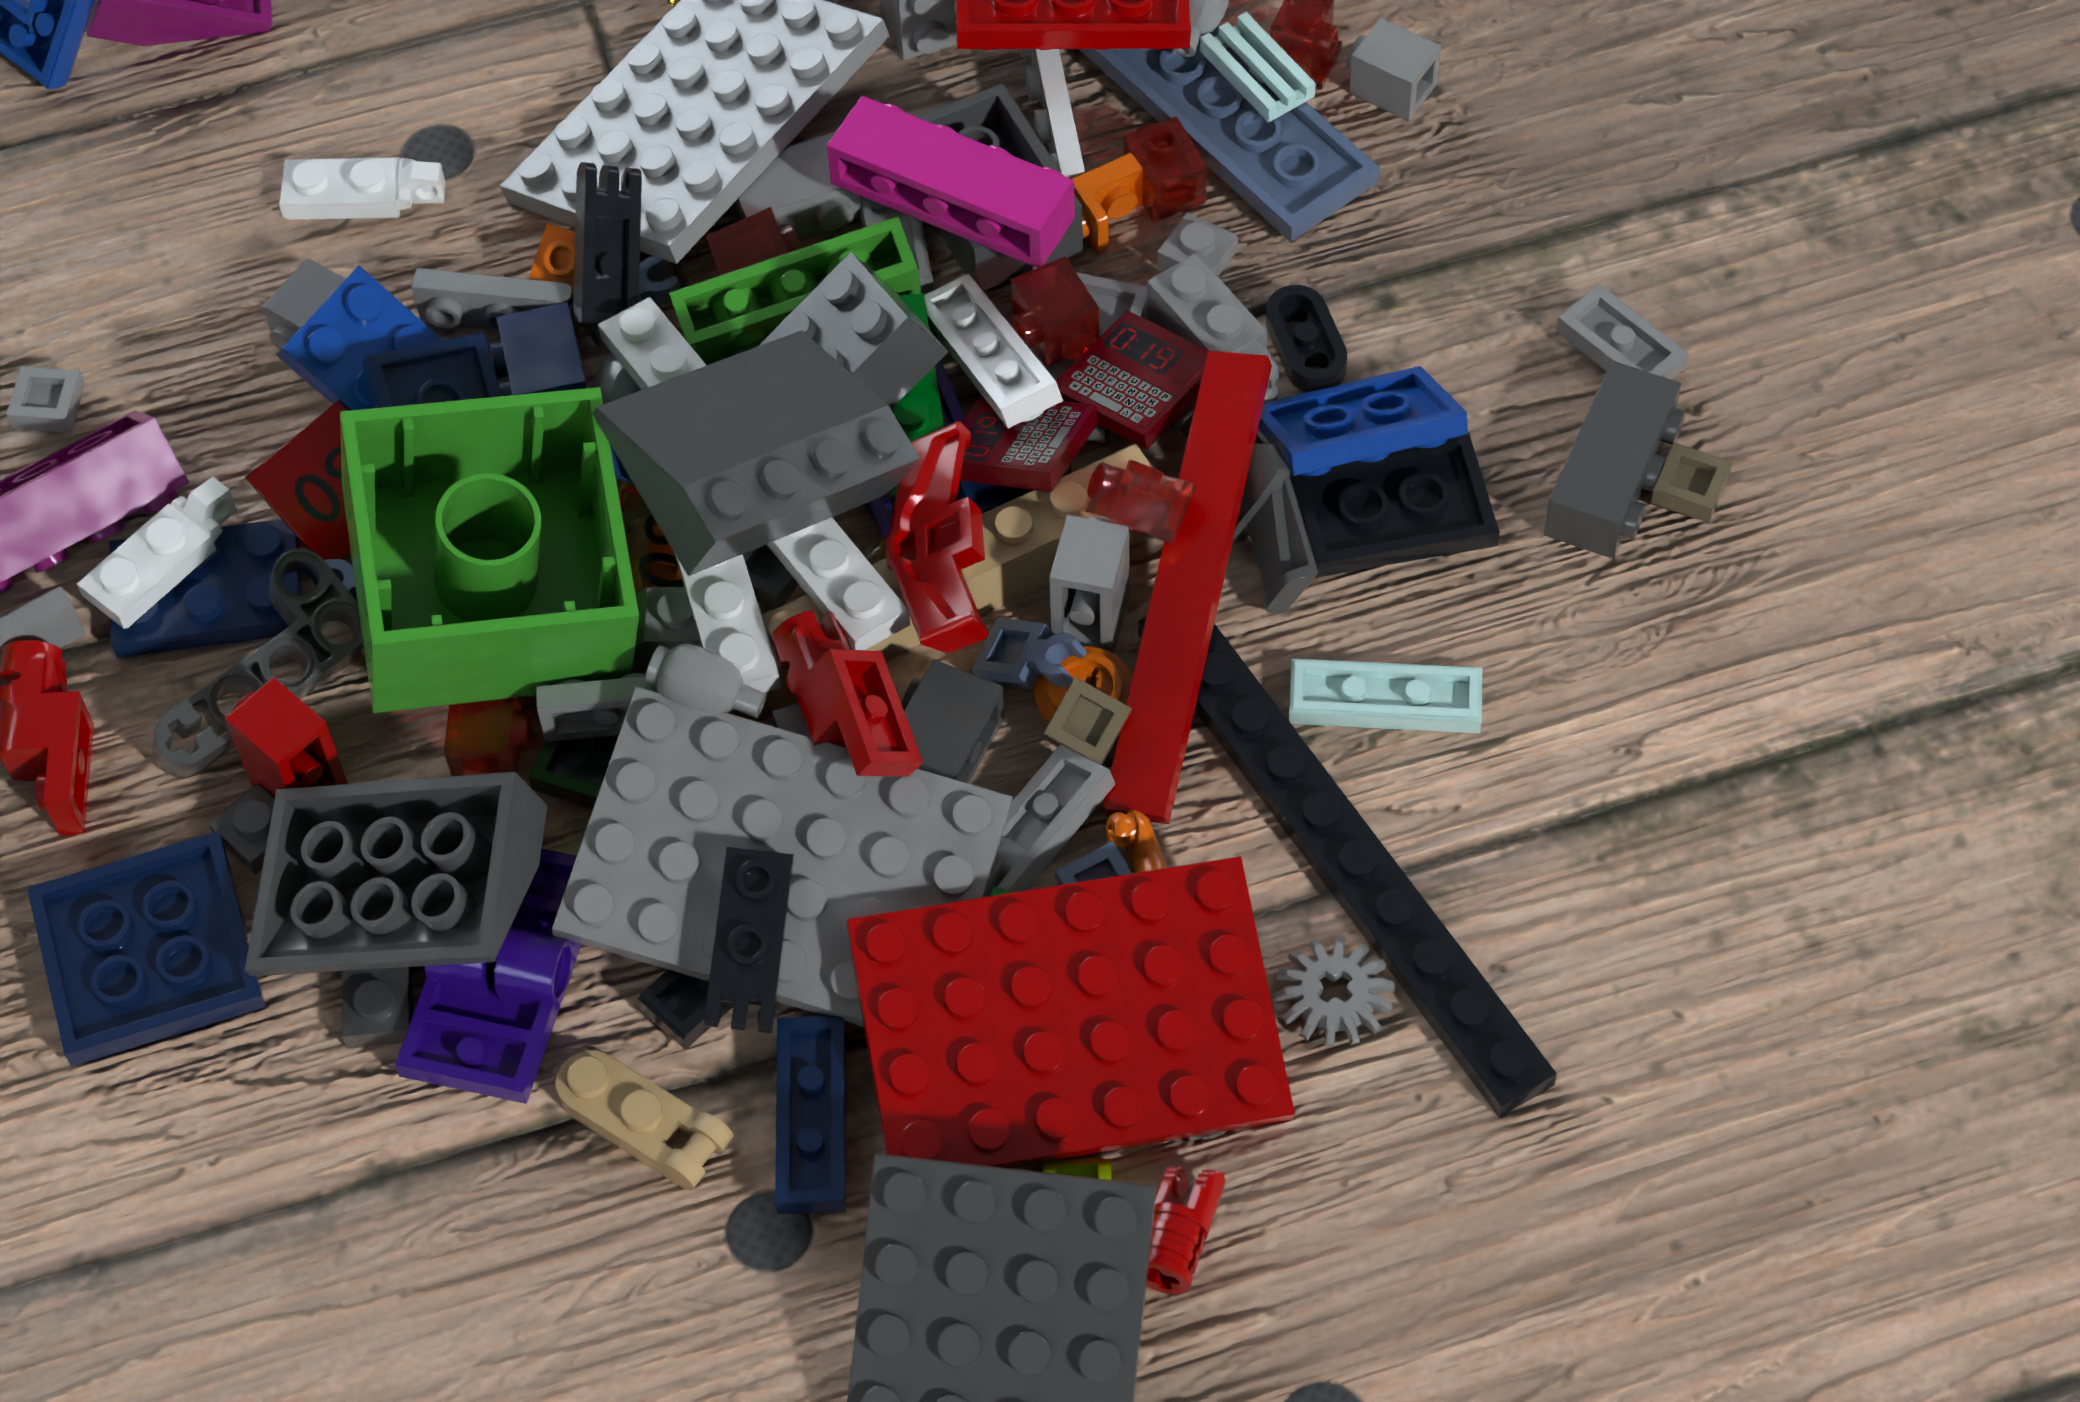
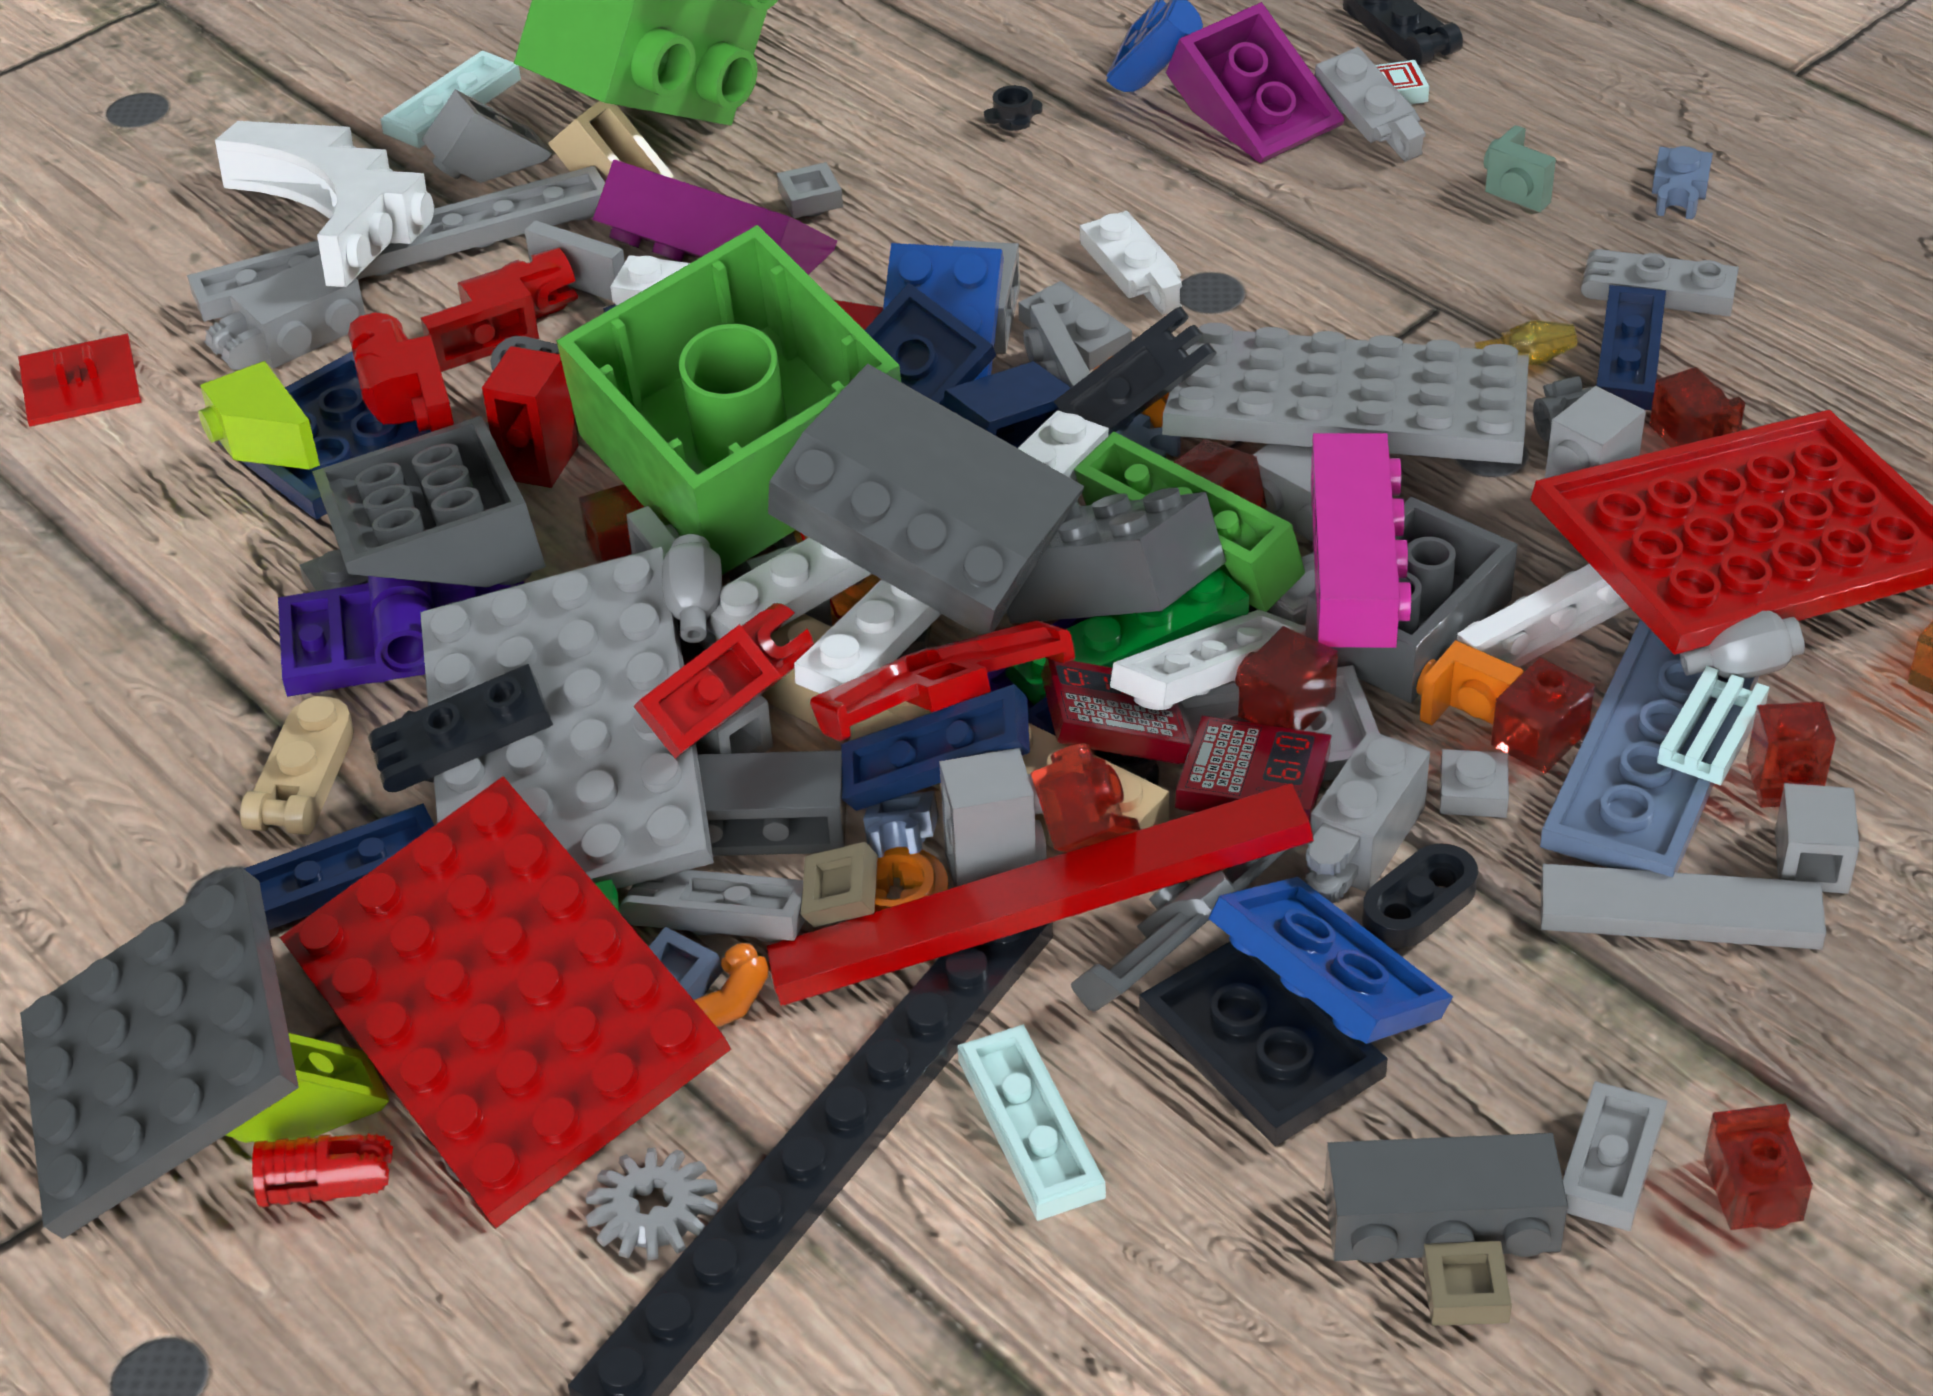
camera: 65 degrees right, 15 degrees down
(36, 181) = (1013, 108): none -> black plate
(122, 996) = (257, 419): none -> lime slope
(148, 843) = (398, 374): none -> red plate
(397, 265) = (1091, 328): none -> light grey plate
(1002, 583) = (909, 753): none -> dark blue plate
(1403, 188) = (1682, 906): none -> light grey tile
(1682, 265) = (1757, 1167): none -> clear red brick

